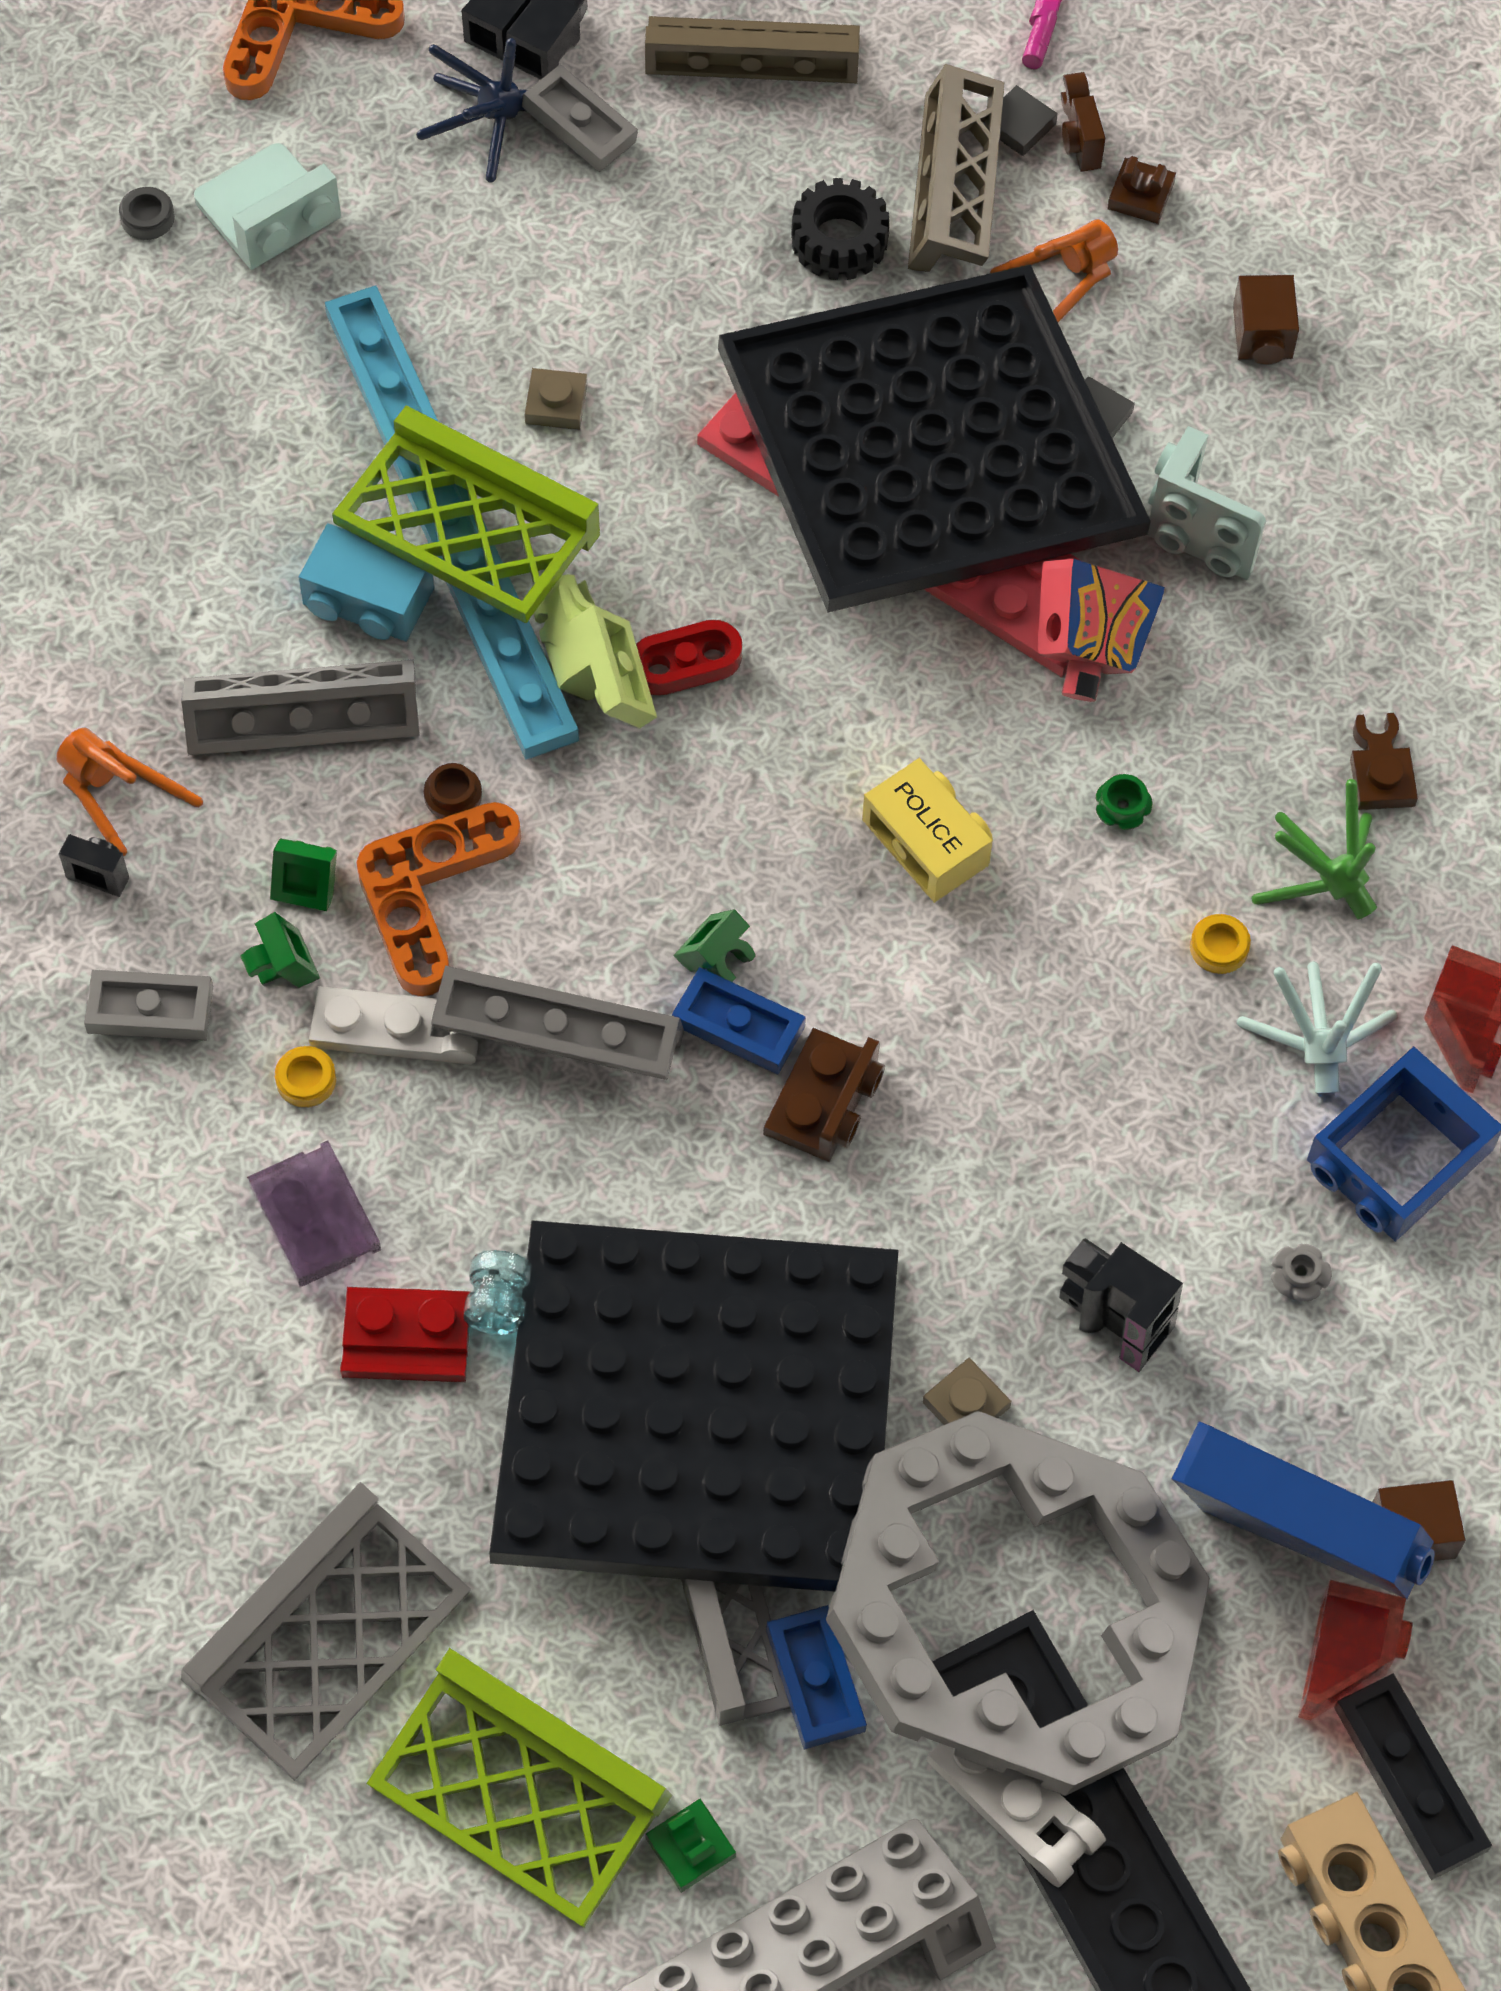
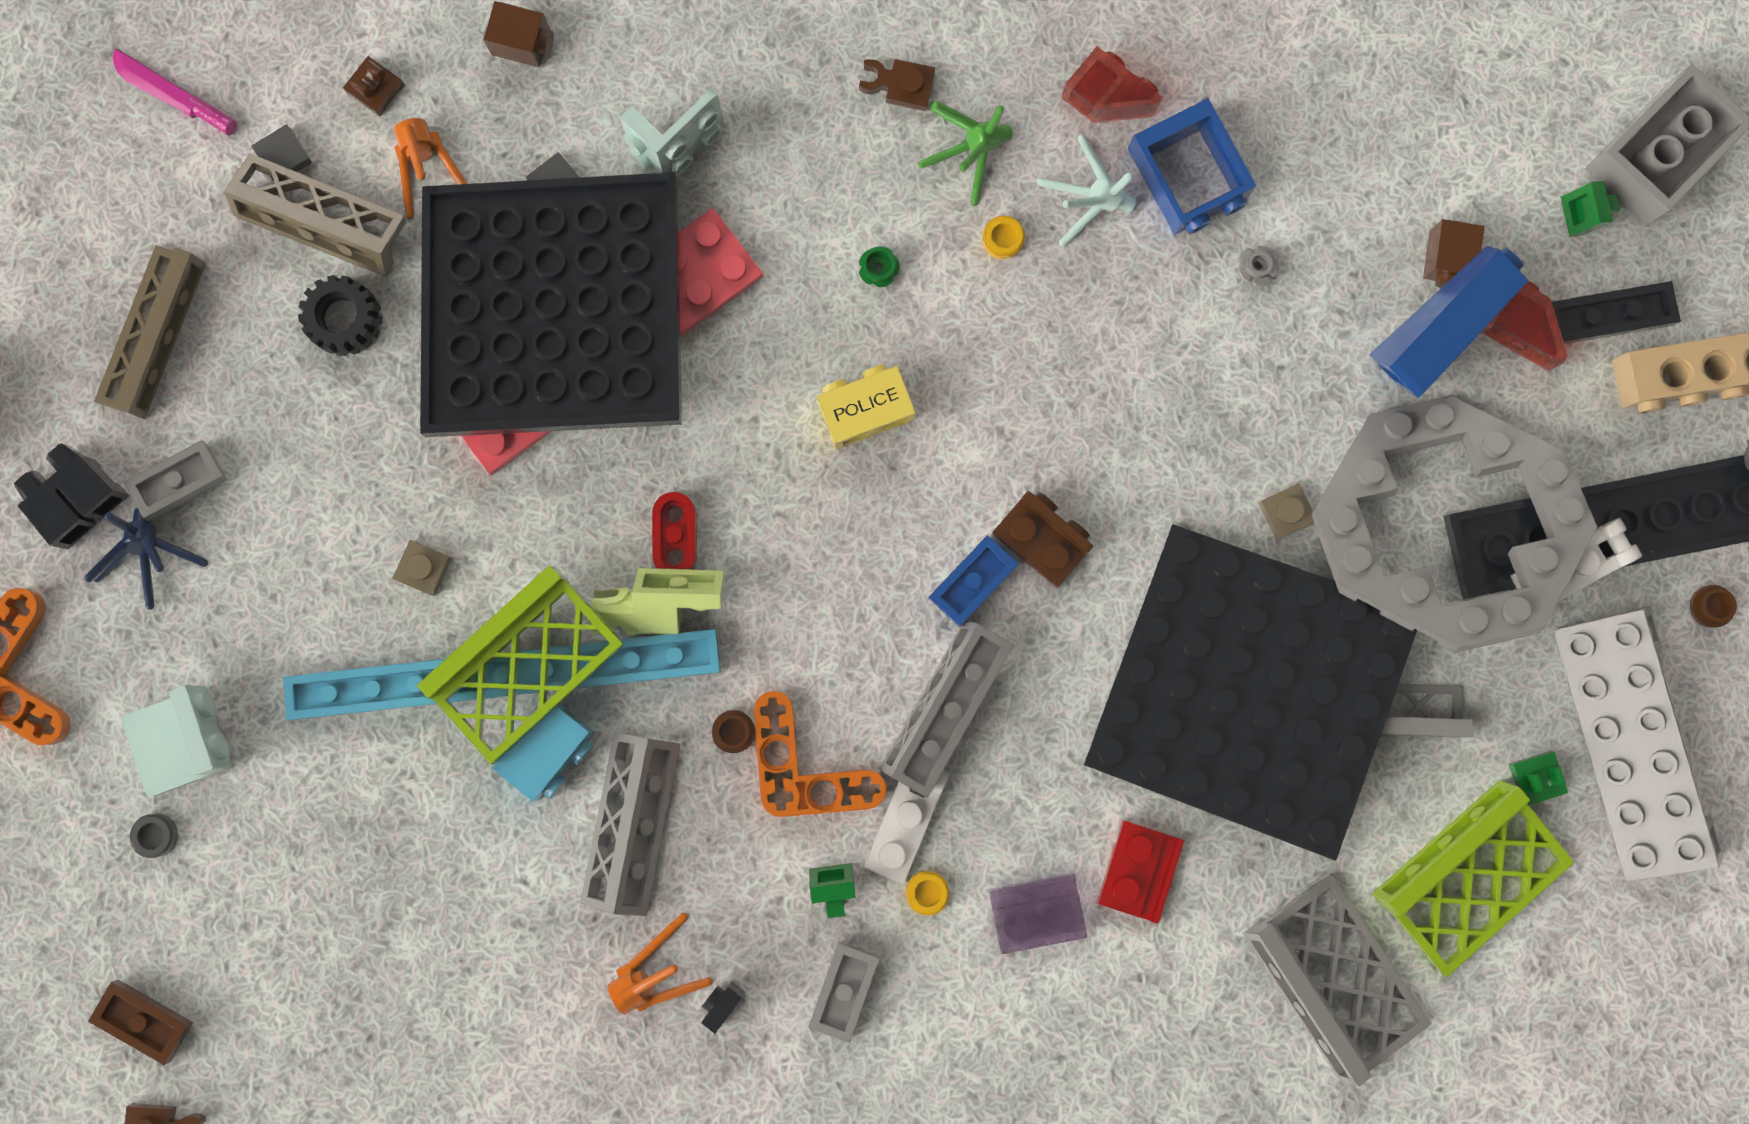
camera: 75 degrees left, 20 degrees up
(303, 874) = (772, 856): green tile -> none
(497, 1298) = (1145, 802): clear light blue wheel -> none
(713, 941) = (910, 581): green tile -> none
(815, 1678) = (1440, 669): blue plate -> none
(1083, 131) = (310, 109): reddish brown plate -> none
(1093, 622) = (743, 239): torso -> none
(1124, 1296) = (1254, 389): black hips -> none

